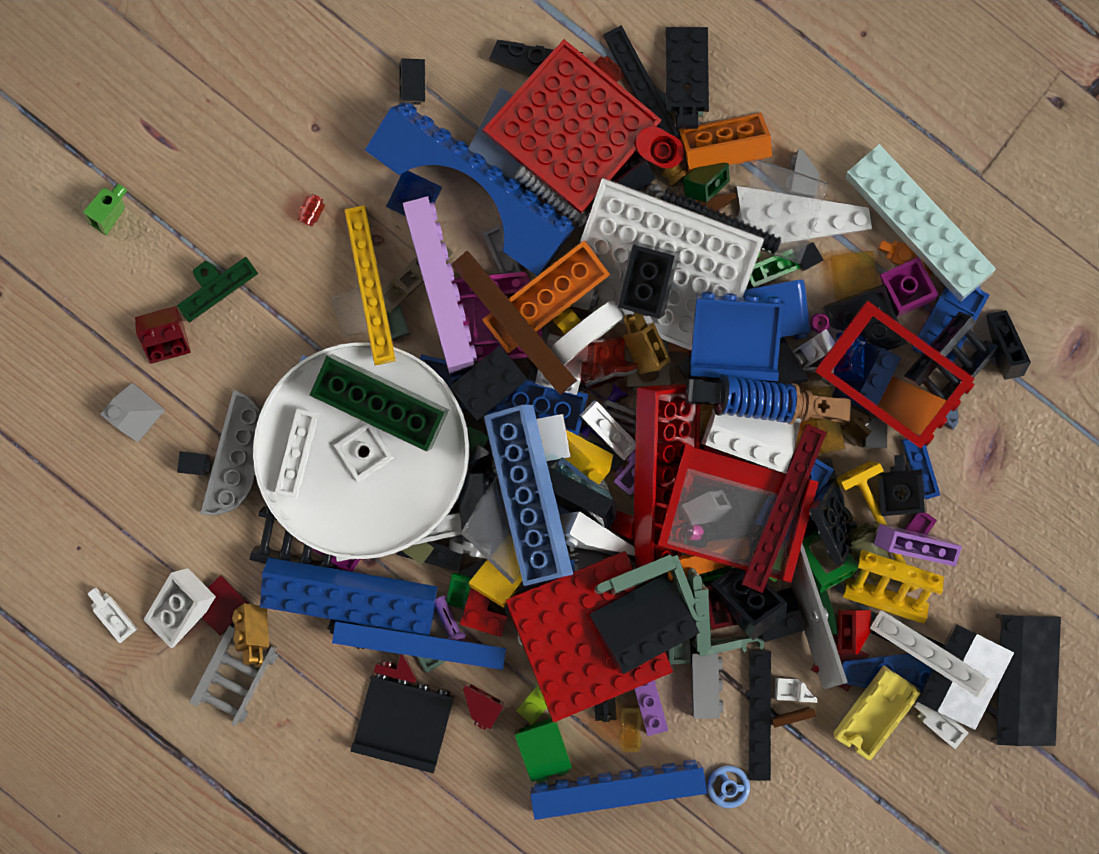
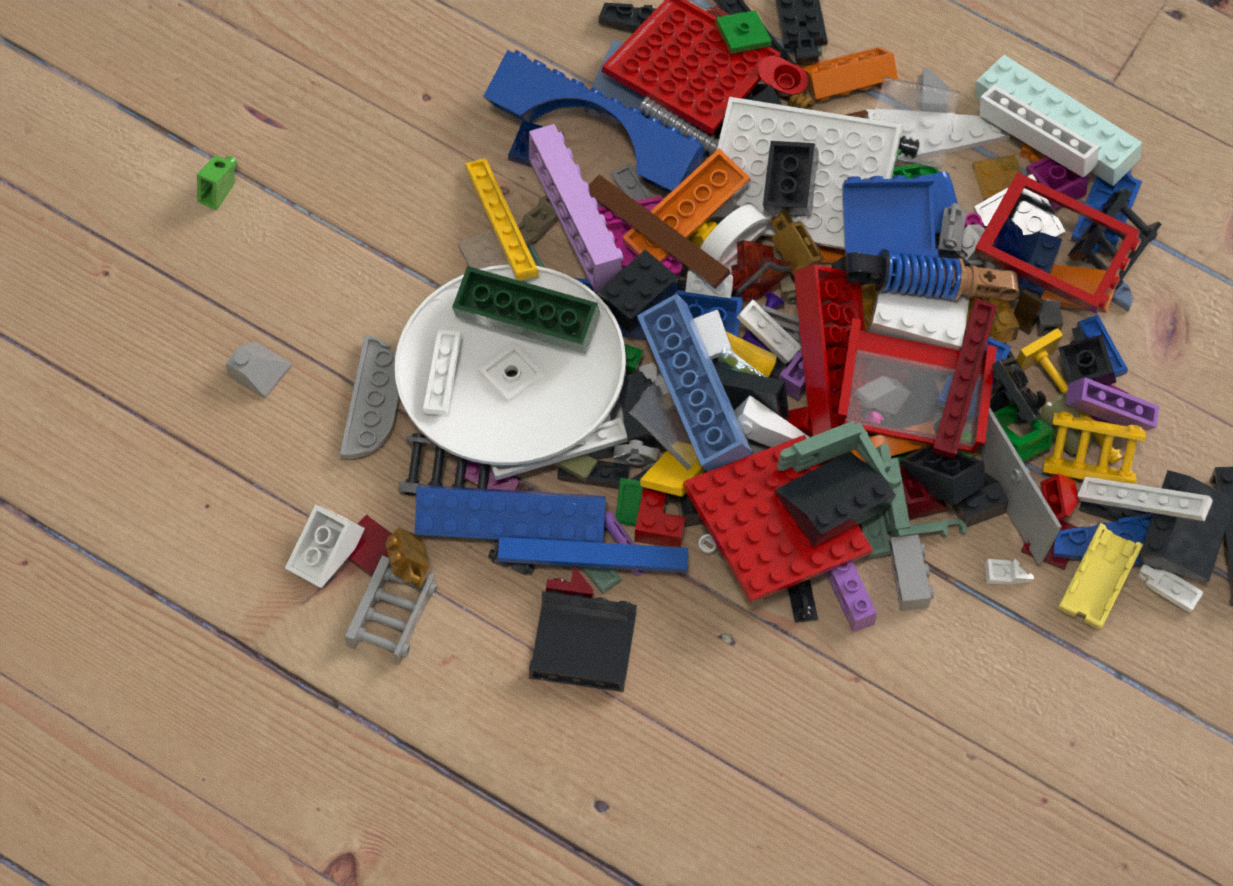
camera: 10 degrees left, 25 degrees down
(111, 615) = (250, 564): white hinge -> none
(162, 334) = (285, 291): dark red slope -> none
(193, 463) = (328, 408): black brick -> none
(215, 286) = (336, 242): dark green plate -> none
(311, 210) = (430, 166): clear red brick -> none
(412, 81) = (522, 38): black hinge -> none
(482, 460) = (641, 361): black slope -> none
(482, 706) = (669, 608): dark red slope -> none
(532, 706) = (728, 609): lime plate -> none
(543, 750) = (742, 648): green slope -> none
(618, 790) = (830, 680): blue brick -> none
(627, 94) = (743, 31): none -> green plate
(630, 721) = (834, 619): clear yellow brick -> none
(706, 181) = (836, 101): dark green slope -> none
(745, 788) = (955, 667): light blue piece -> none
(759, 716) = (974, 601): black plate -> none
(792, 717) = (1010, 595): reddish brown tile -> none
(798, 339) = (952, 228): none -> light grey hinge
(811, 257) = (953, 165): black tile -> none
(898, 241) = (1039, 131): none -> white brick
(1011, 356) = (1175, 232): black slope -> none

